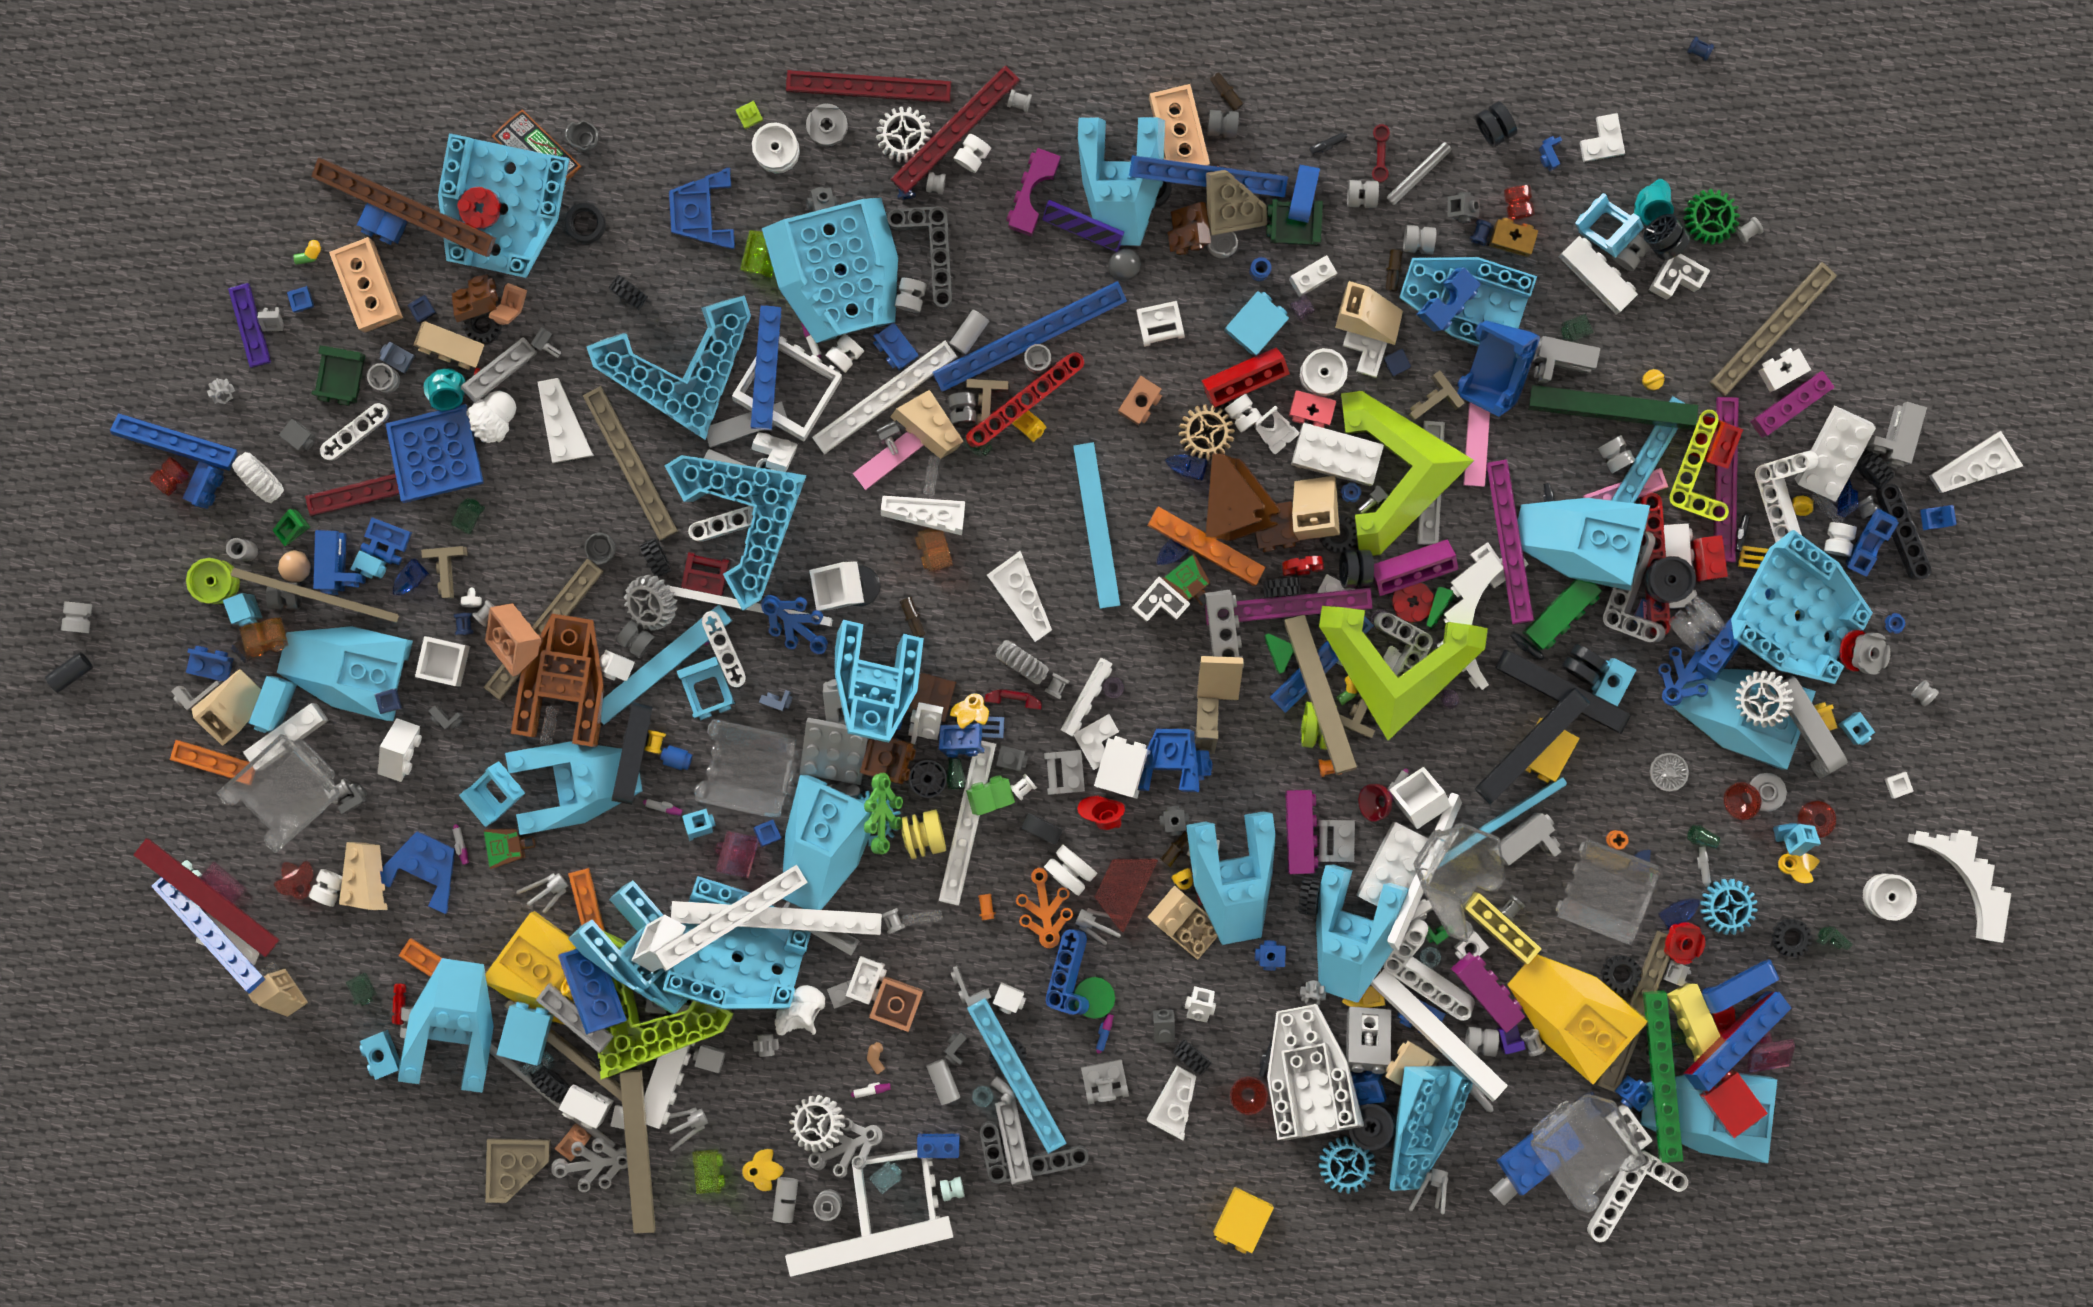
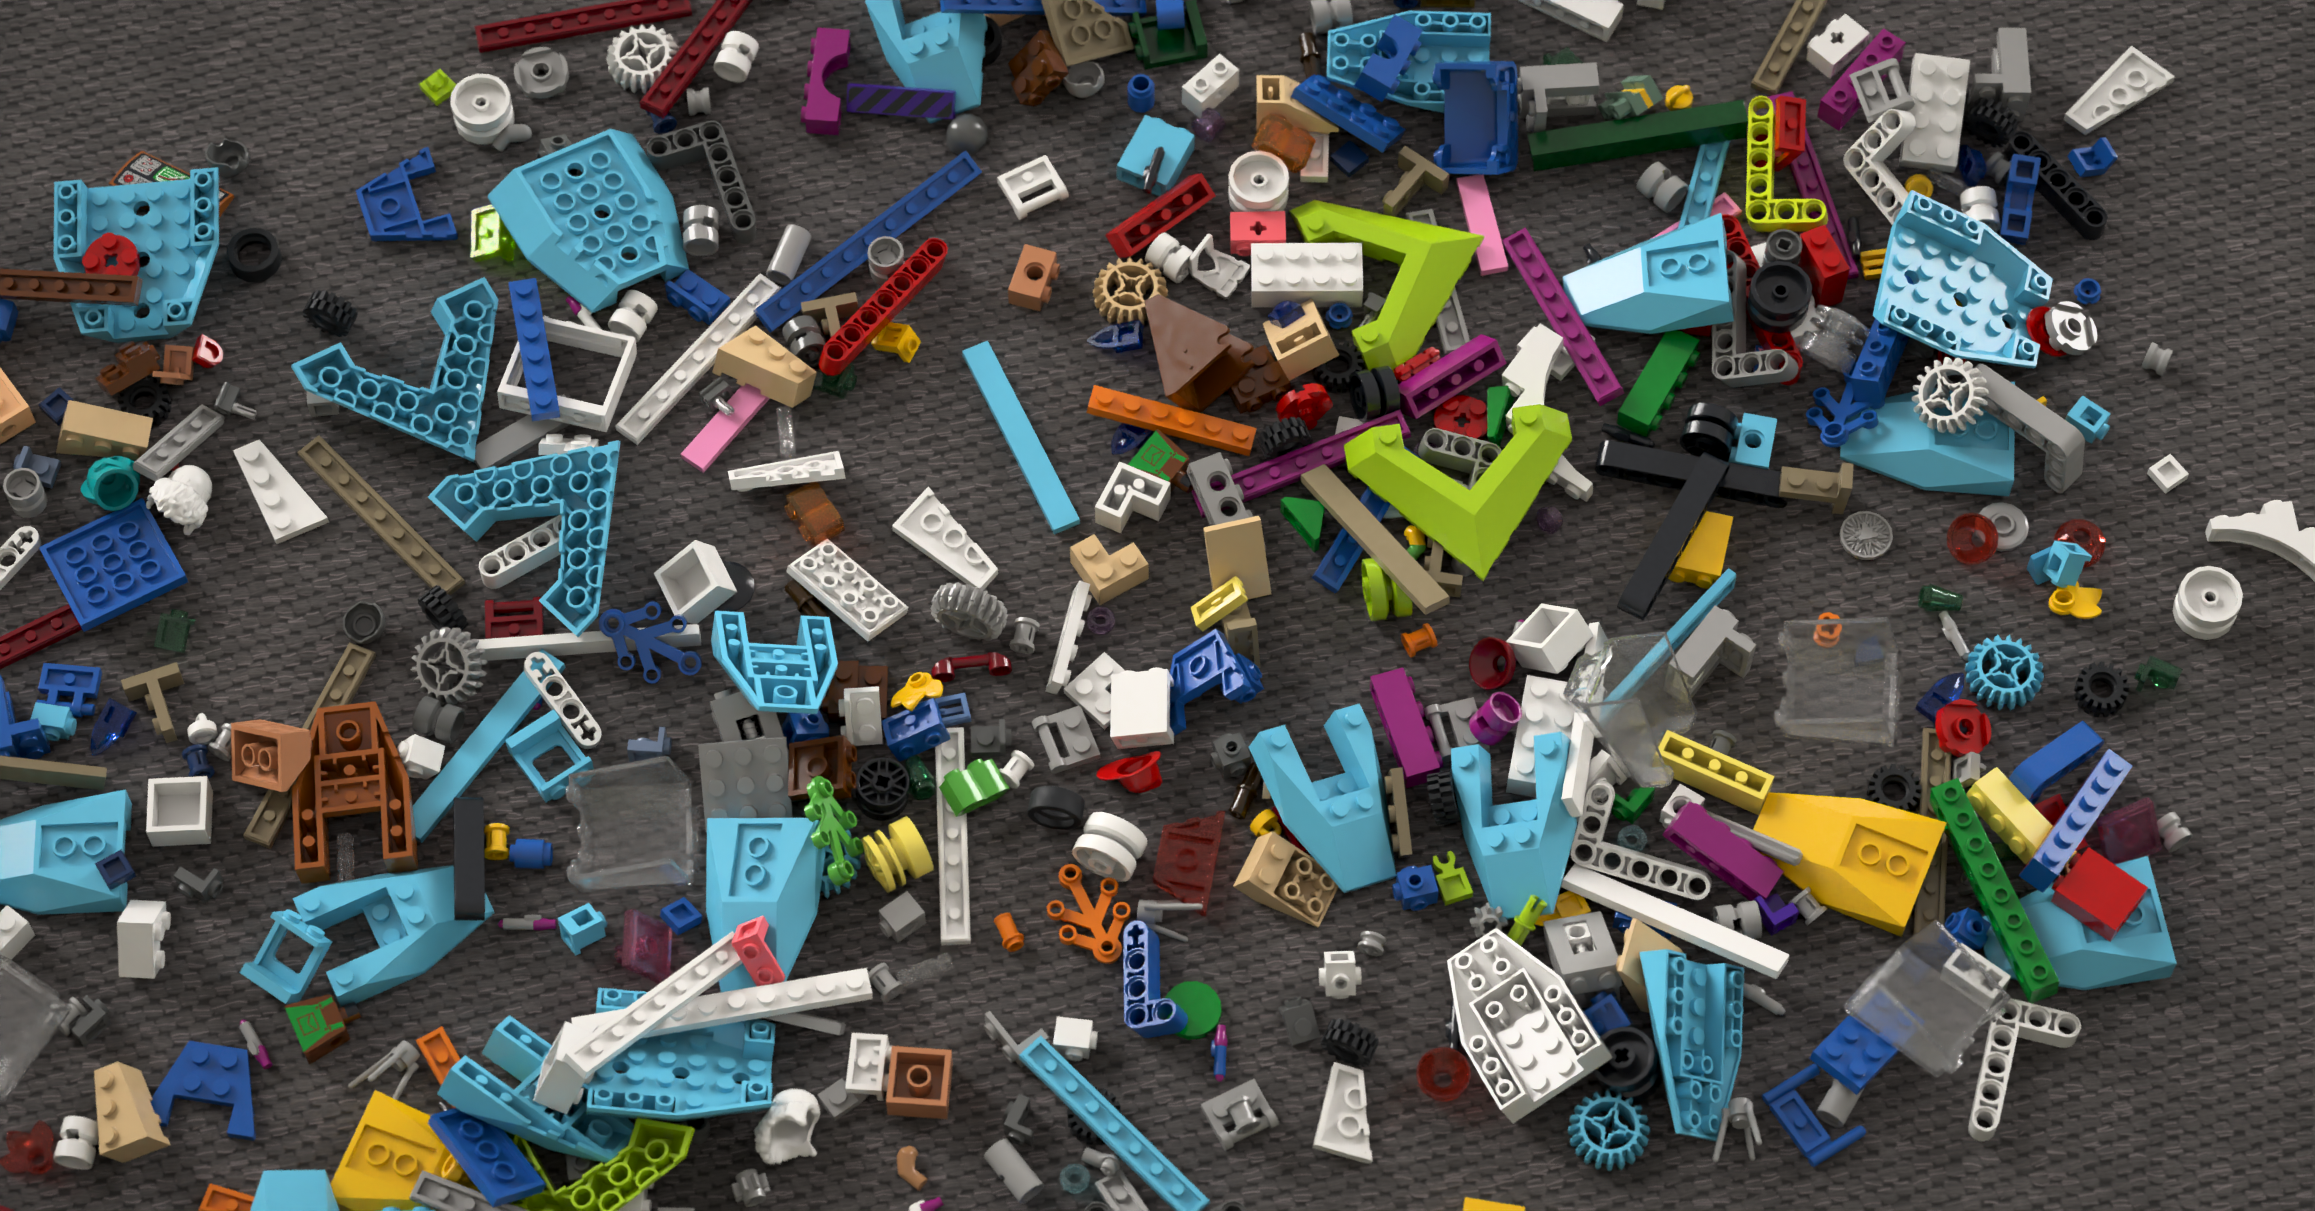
camera: 15 degrees left, 25 degrees down
(535, 296) = (207, 352): none -> tile
(793, 172) = (510, 134): none -> light grey arm
(805, 882) = (755, 953): none -> coral bracket
(915, 877) = (901, 917): none -> light grey brick
(942, 615) = (847, 589): none -> white tile
(1124, 655) = (1108, 573): none -> tan brick
(1184, 711) = (1219, 603): none -> light yellow tile
(1229, 985) = (1371, 943): none -> light grey bush
(1248, 342) = (1151, 172): none -> black piece
(1275, 897) = (1398, 812): none -> dark tan wing
(1297, 956) = (1451, 882): none -> lime plate
(1311, 487) = (1285, 314): none -> clear blue plate
(1337, 1003) = (1525, 921): none -> lime axle
(1351, 346) = (1284, 141): none -> clear orange brick
(1363, 847) = (1495, 718): none -> magenta wheel
(1394, 549) = (1416, 364): none -> red axle
(1406, 330) = (1348, 112): none -> blue plate
(1477, 1195) = (1801, 1122): none -> blue plate
(1513, 987) = (1763, 842): none -> light grey axle
(1616, 377) = (1637, 96): none -> sand green hips
(1647, 731) = (1818, 485): none -> dark tan bracket
(1683, 544) = (1783, 246): none -> dark grey wheel
(1795, 429) = (1872, 91): none -> light grey plate
(1801, 1058) = (2171, 830): none -> light grey wheel

